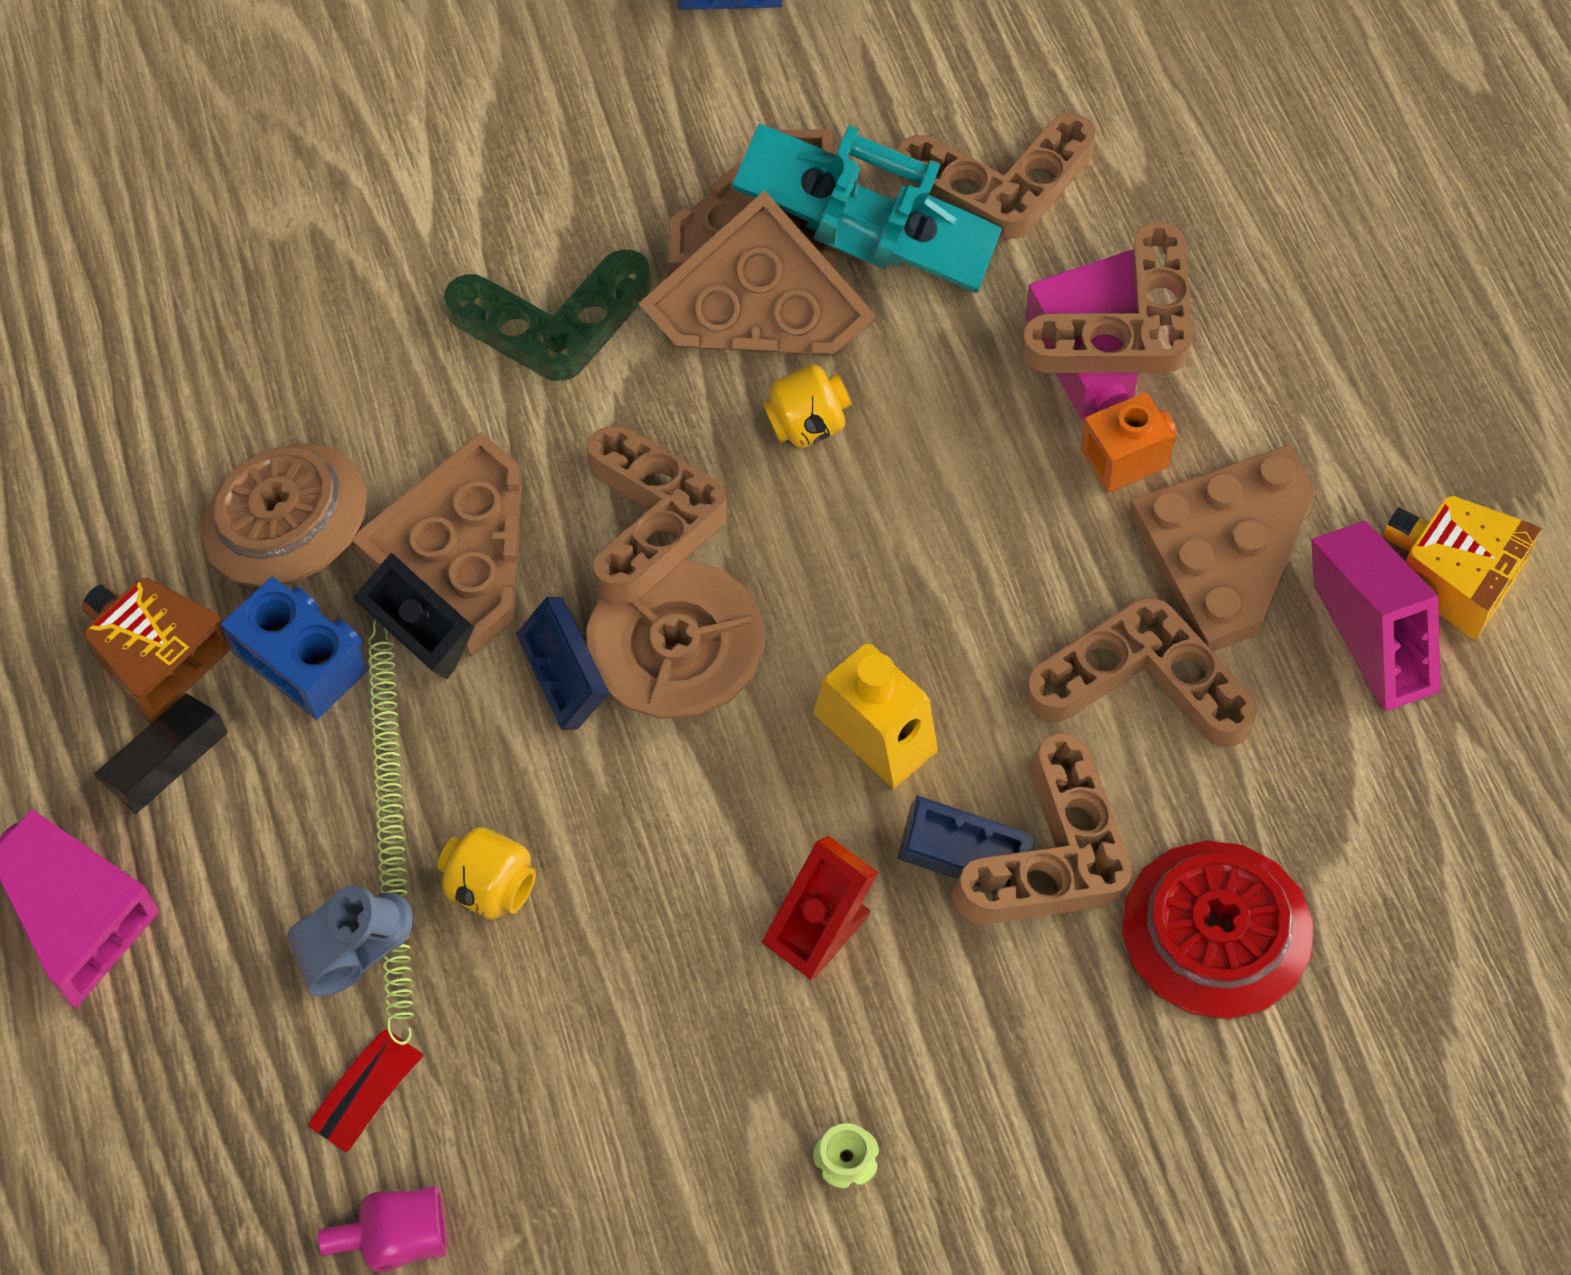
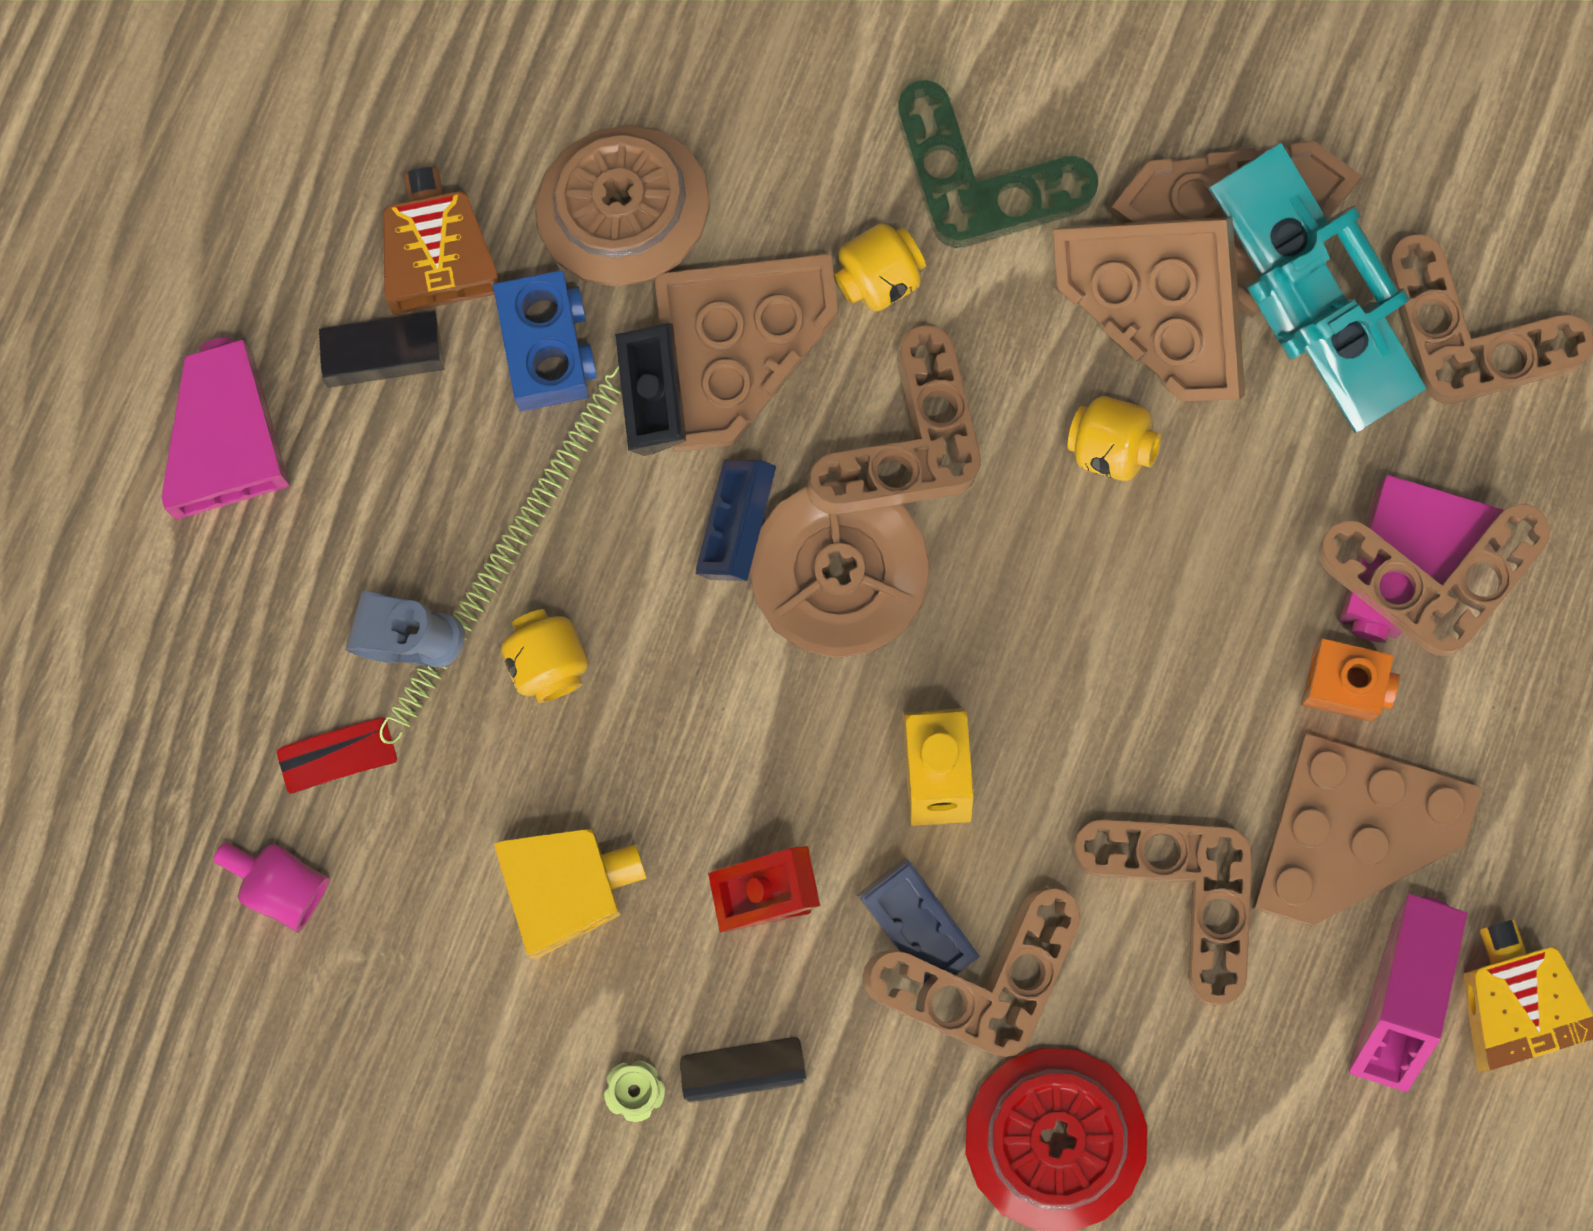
camera: 40 degrees right, 20 degrees up
(527, 417) = (879, 267): none -> yellow head
(648, 1034) = (564, 885): none -> yellow torso
(925, 1069) = (742, 1069): none -> black slope

